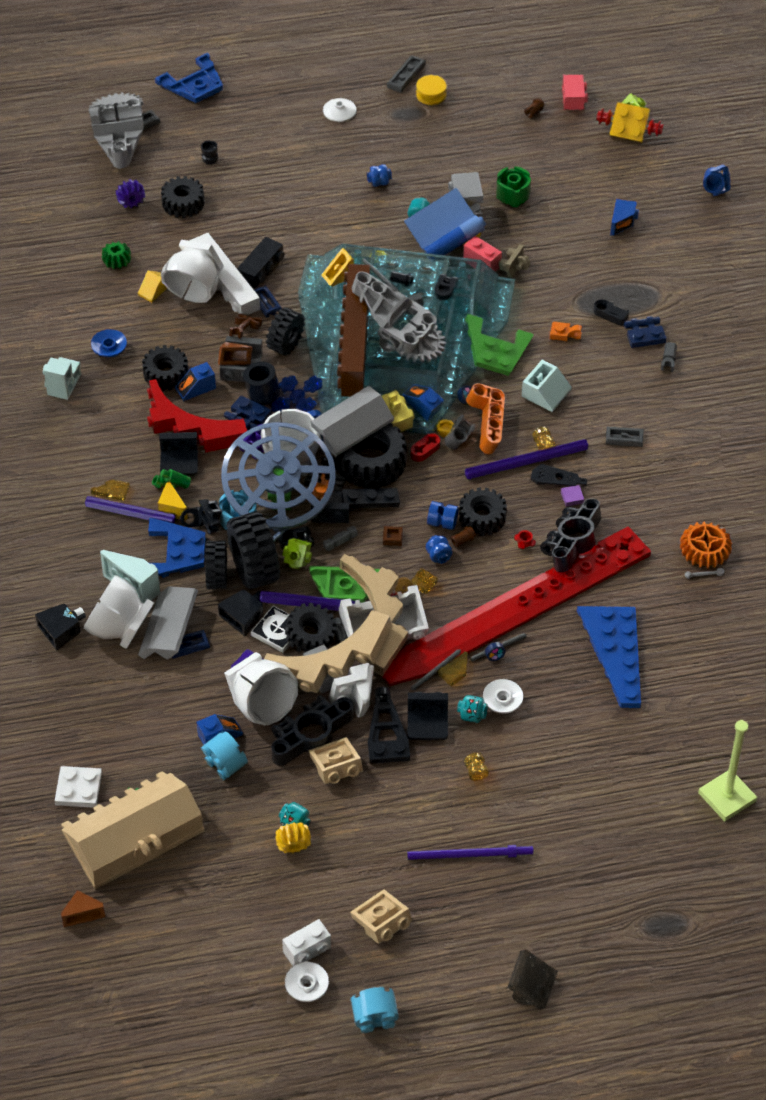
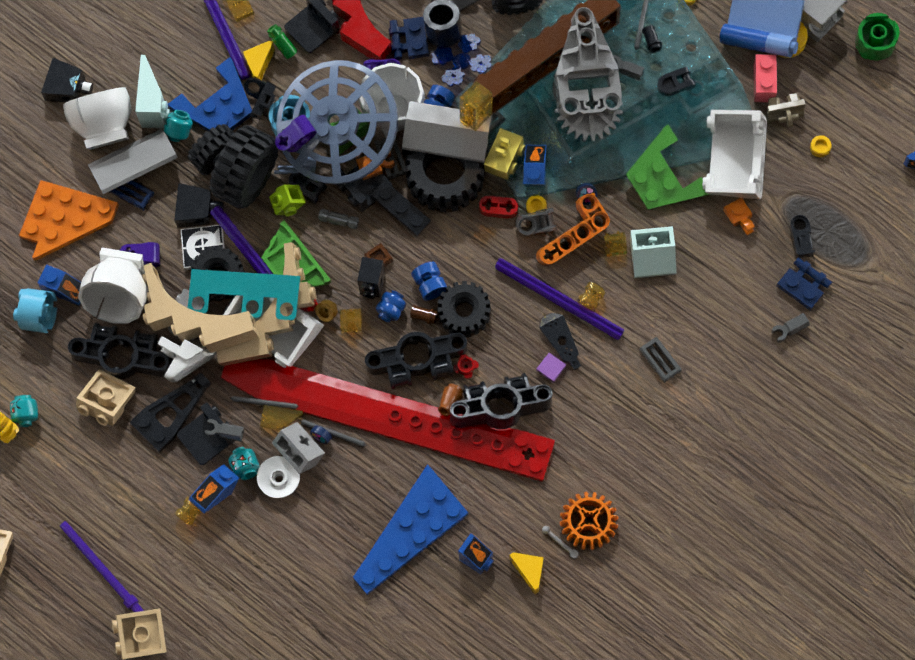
camera: 55 degrees right, 20 degrees up
(163, 697) = (63, 217): none -> orange wing
(170, 576) = (178, 125): none -> teal head
(266, 495) = (295, 134): none -> dark purple piece
(348, 603) = (249, 285): none -> teal piece
(360, 380) = (475, 106): none -> clear yellow brick
(408, 541) = (371, 277): none -> black brick
(443, 692) = (225, 430): none -> dark grey bar
(477, 734) = (214, 488): none -> slope
(482, 575) = (400, 373): none -> black piece
(493, 667) = (298, 448): none -> light grey brick
(518, 403) = (615, 244): none -> clear yellow tile
(523, 297) = (736, 153): none -> white windscreen
(541, 560) = (451, 394): none -> dark orange cone
(544, 857) = (139, 634): none -> tan plate
(557, 263) = (820, 146): none -> yellow tile
(672, 619) = (475, 554): none -> slope
(711, 599) = (529, 568): none -> yellow slope

